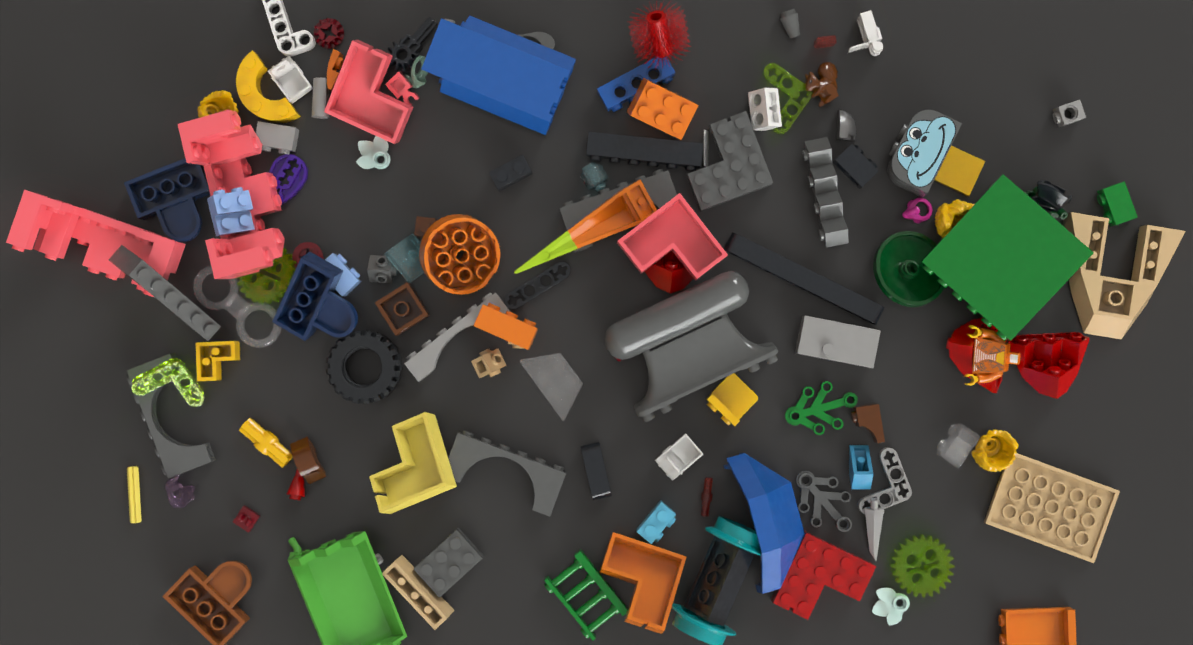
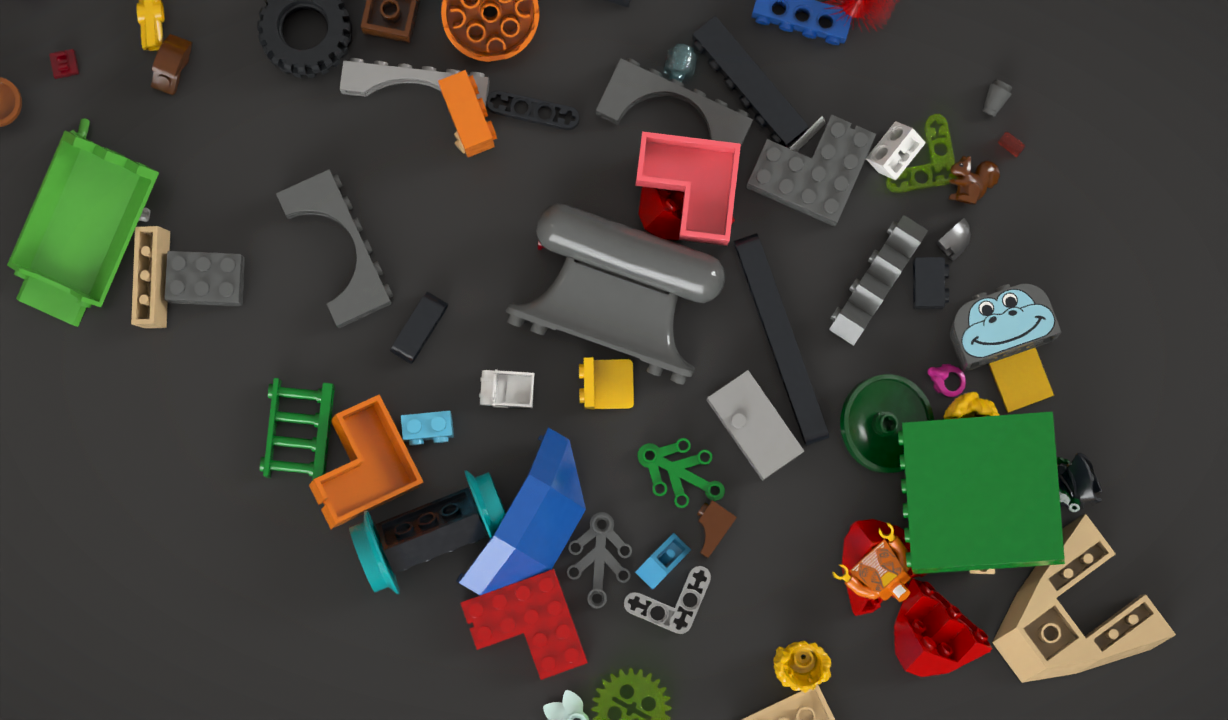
camera: 45 degrees right, 5 degrees down
(296, 487) = (136, 79): red cone -> none
(423, 469) = (264, 170): light yellow piece -> none
(489, 363) = (419, 135): tan brick -> none
(555, 380) = (463, 210): clear wing -> none
(618, 213) = (655, 109): orange plate -> none
(662, 108) = (801, 59): orange brick -> none
(706, 496) = (496, 450): clear red bar -> none
(870, 34) = (1059, 177): white piece -> none
(874, 520) = (626, 623): light grey bar -> none
(957, 444) = (773, 629): clear brick -> none
(1076, 110) = (1184, 423): light grey brick -> none
(1116, 204) = (1137, 552): green brick -> none

